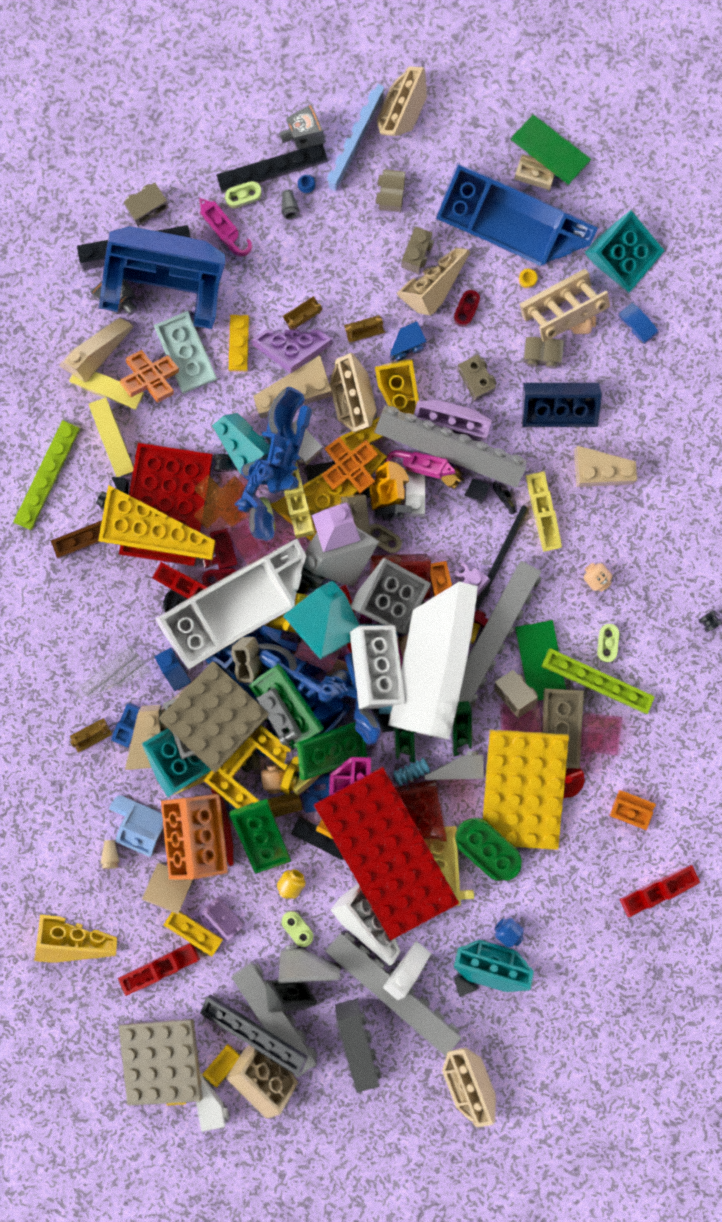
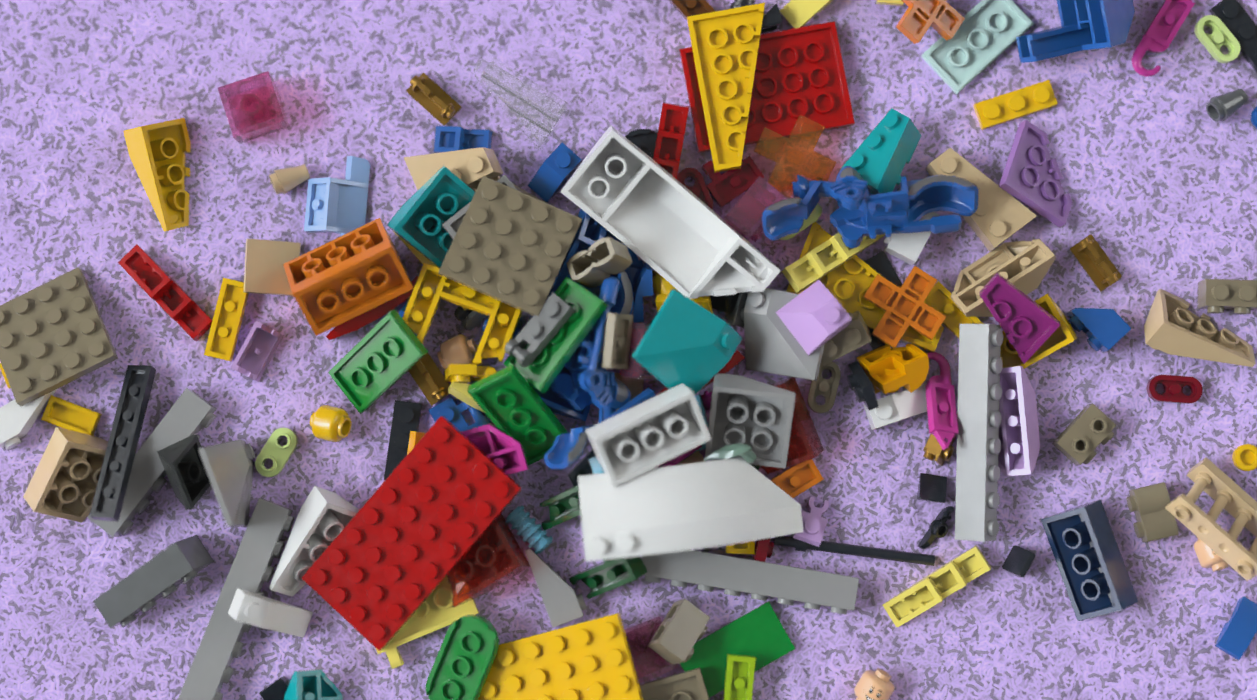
camera: 70 degrees right, 0 degrees up
(50, 863) = (253, 107): none -> clear pink brick
(222, 463) = (847, 140): black wheel -> none
(302, 313) = (1086, 173): pearl gold hinge -> none
(305, 665) = (617, 341): none -> dark tan plate
(383, 391) = (1019, 316): none -> magenta wing
(407, 614) = (733, 450): none -> sand green bar
(545, 451) = (1018, 561): none -> black slope
(602, 469) = (1022, 646): tan wedge -> none

